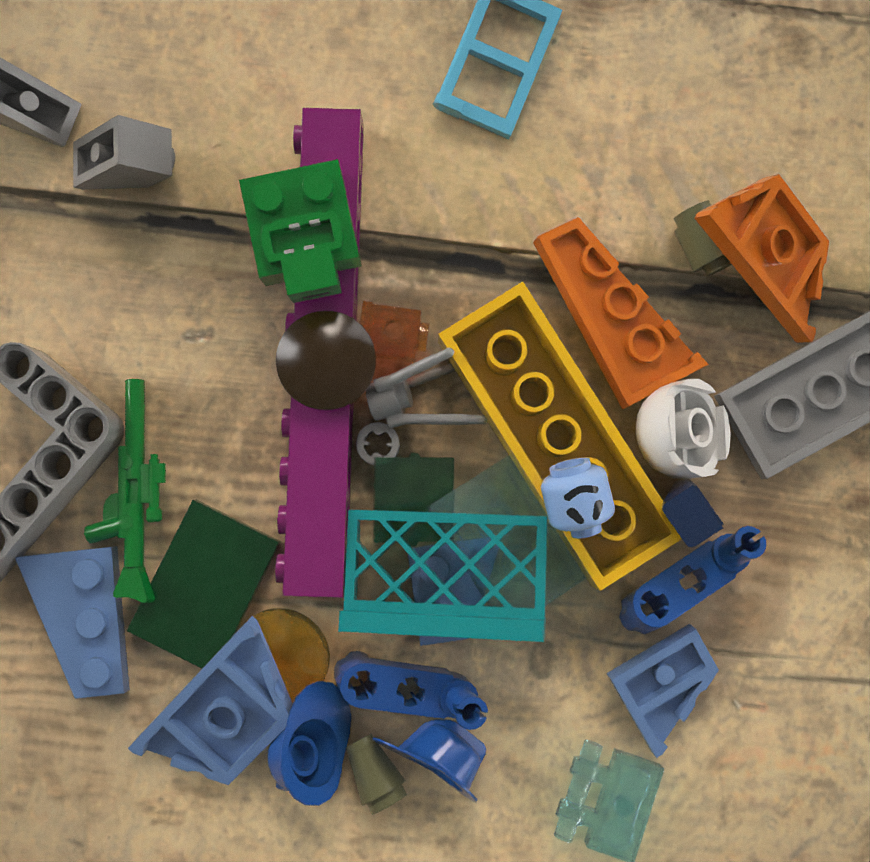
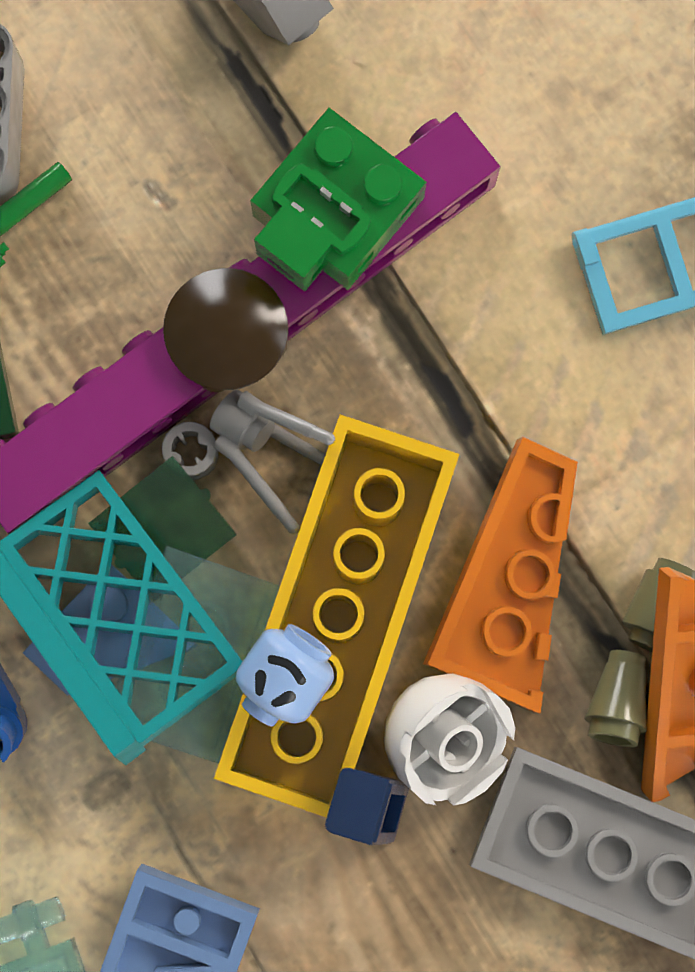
camera: 50 degrees right, 5 degrees down
(414, 336) = (319, 398): clear orange brick -> none
(713, 566) = (336, 879): blue beam -> none
(738, 311) = (619, 702): none -> olive cone

